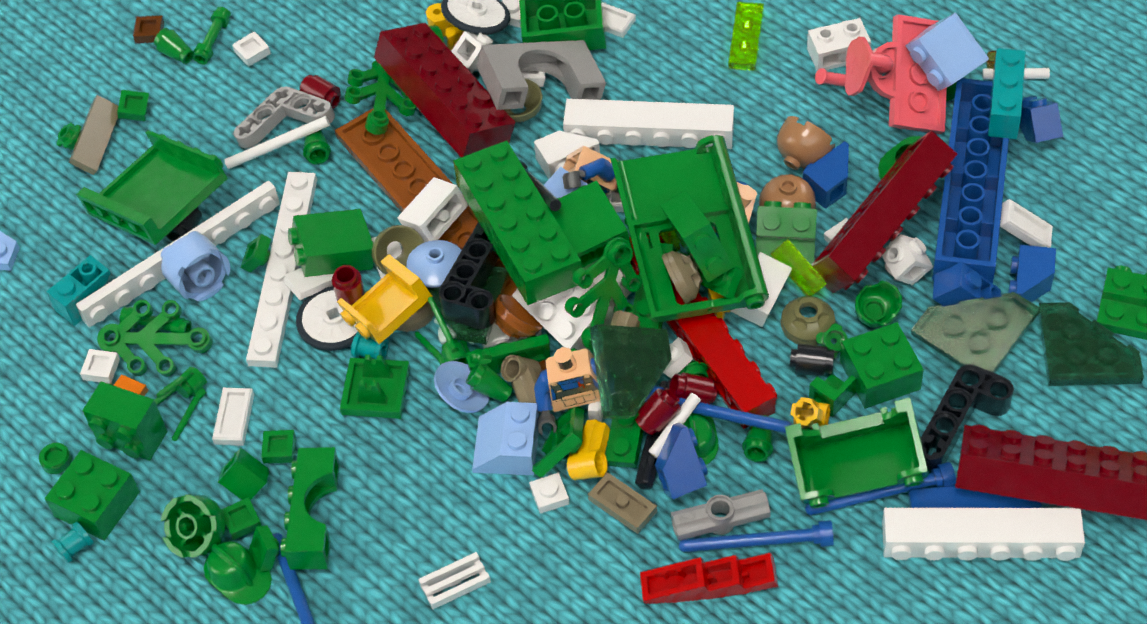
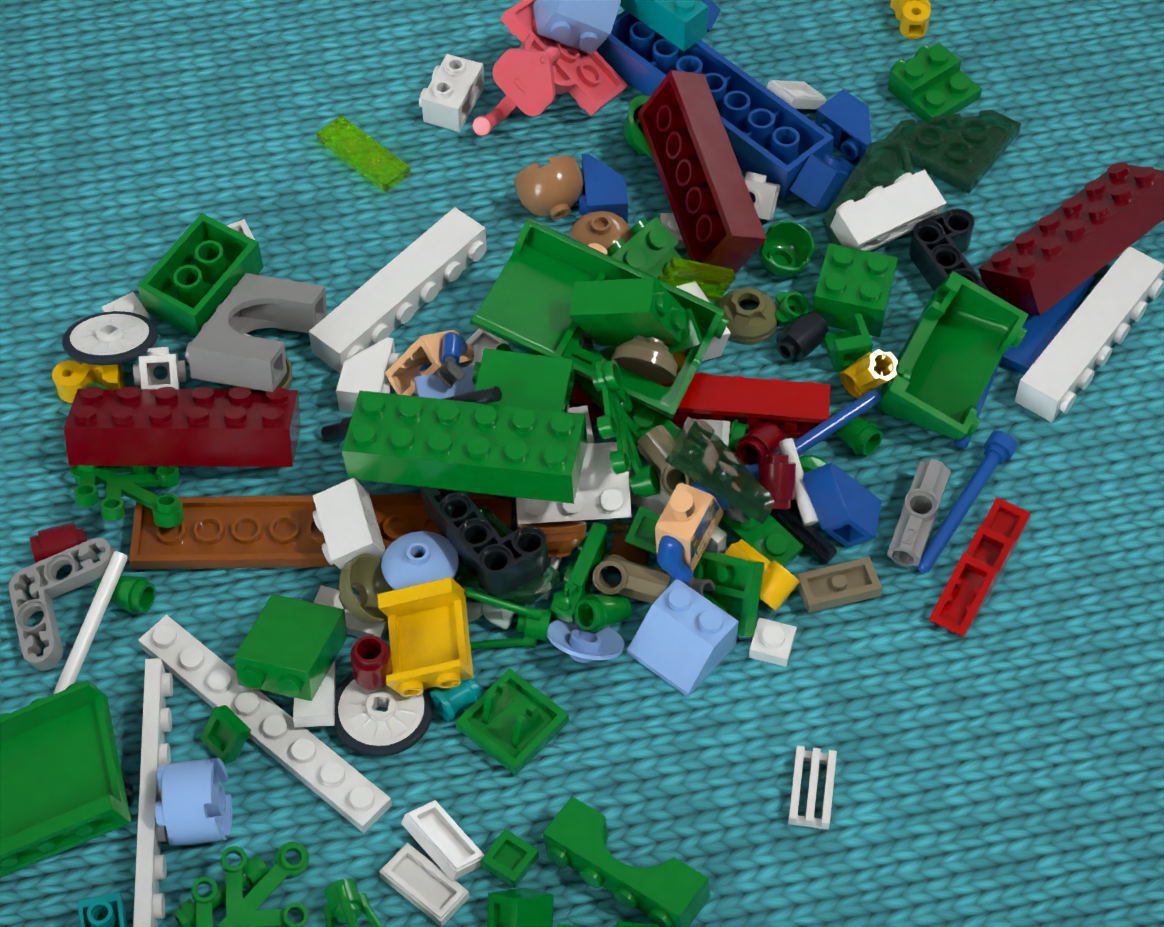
camera: 60 degrees left, 0 degrees up
(266, 404) = (443, 840): none -> white tile
(959, 339) = (887, 212): none -> white brick

